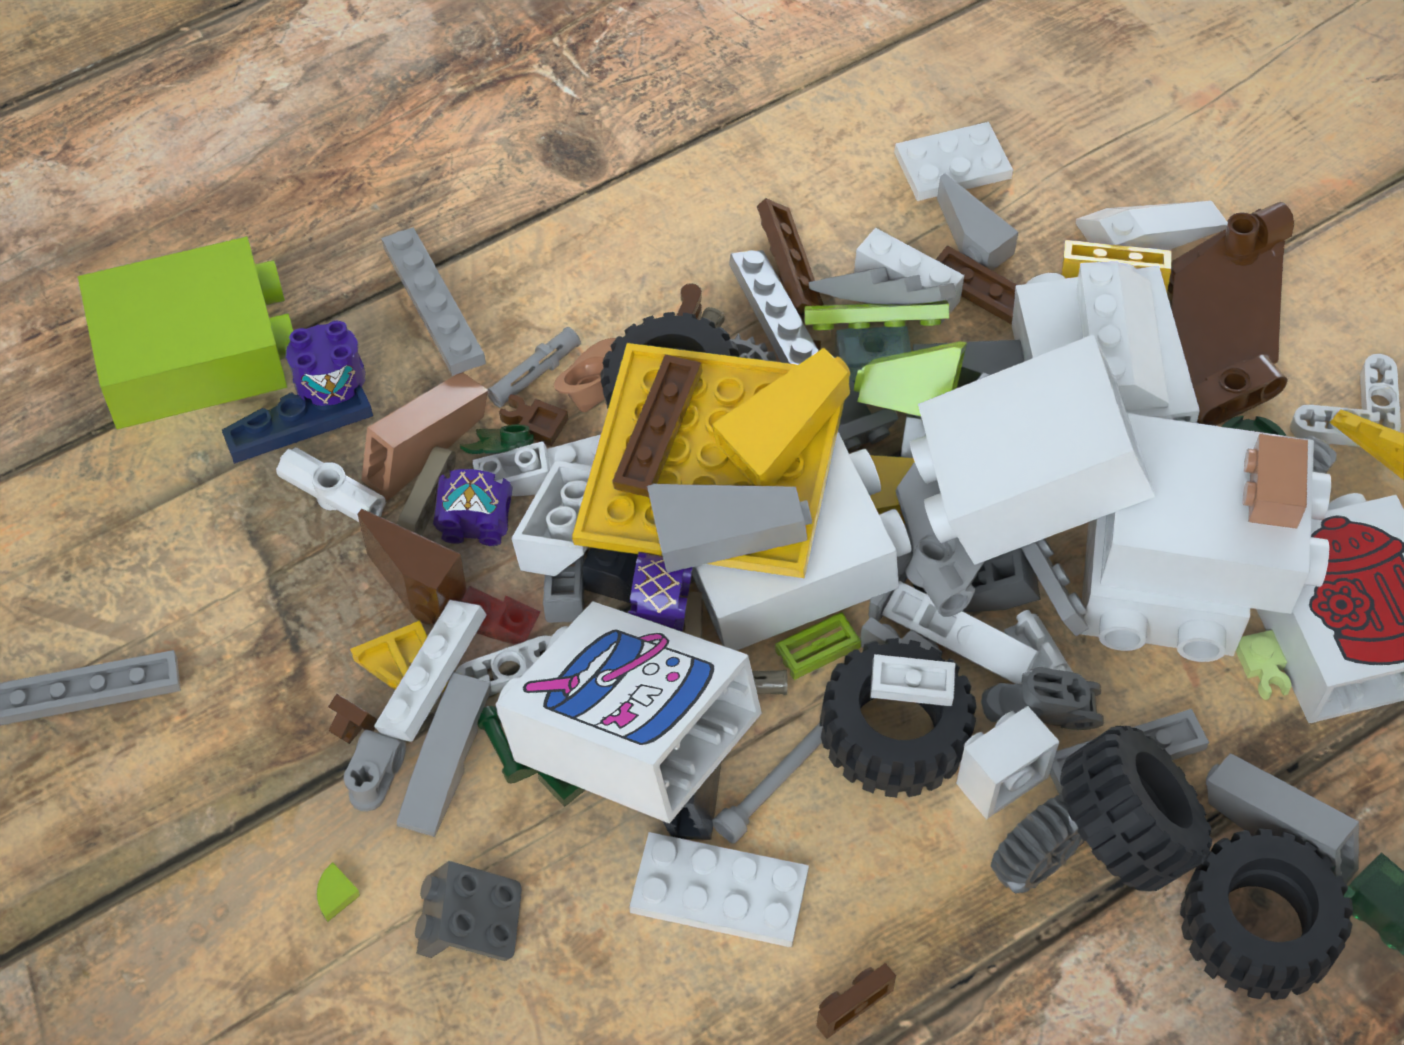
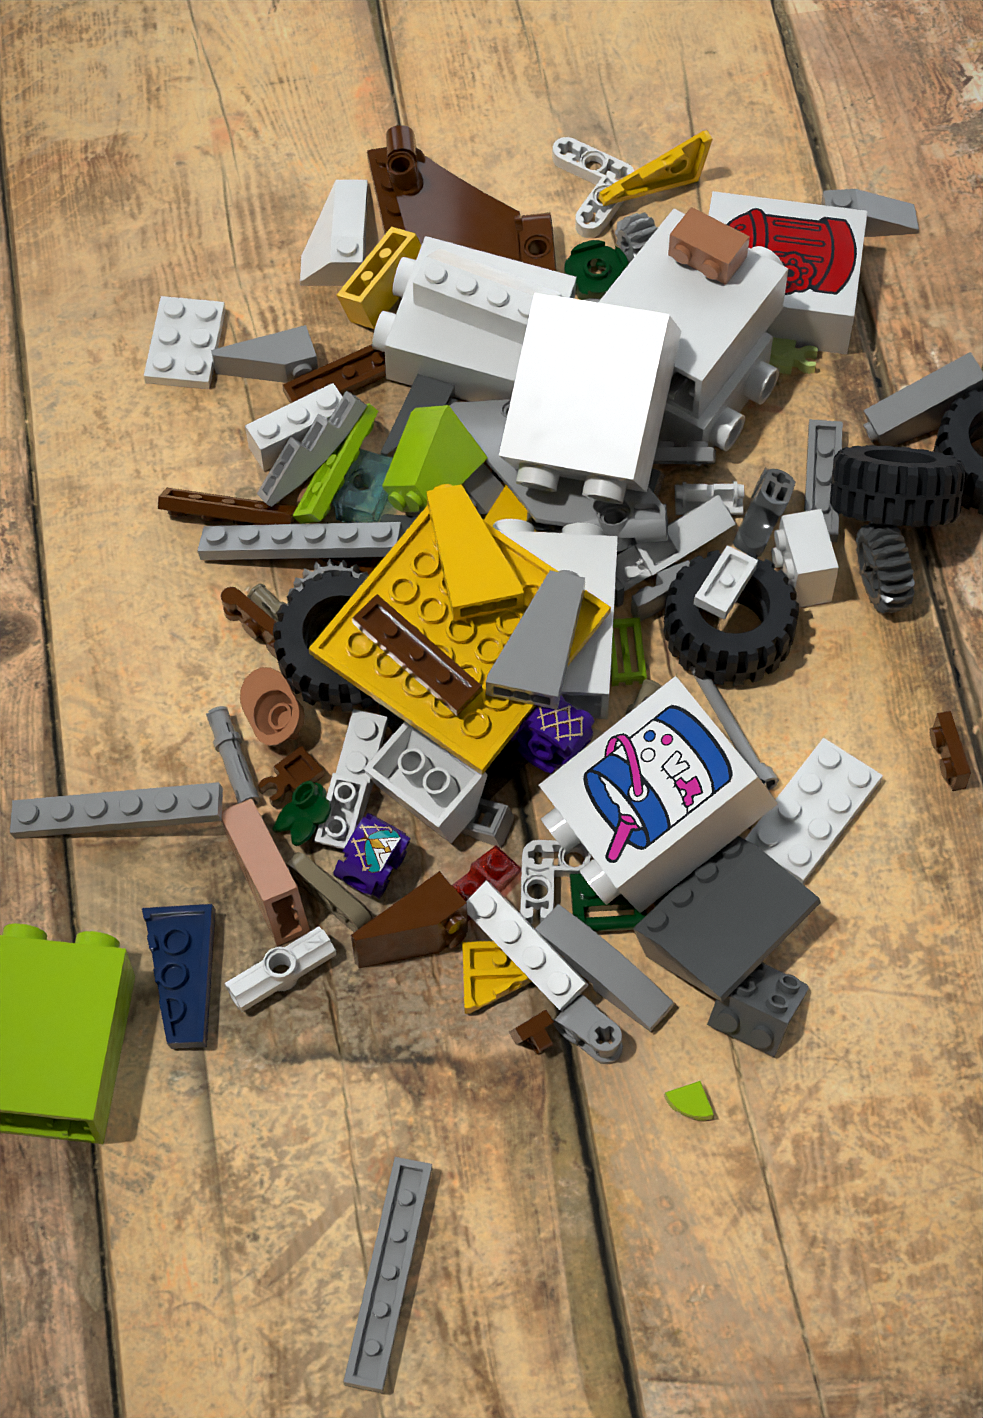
camera: 65 degrees left, 5 degrees up
(325, 363) = (150, 922): dark purple brick -> none
(539, 838) = (725, 918): none -> dark grey slope

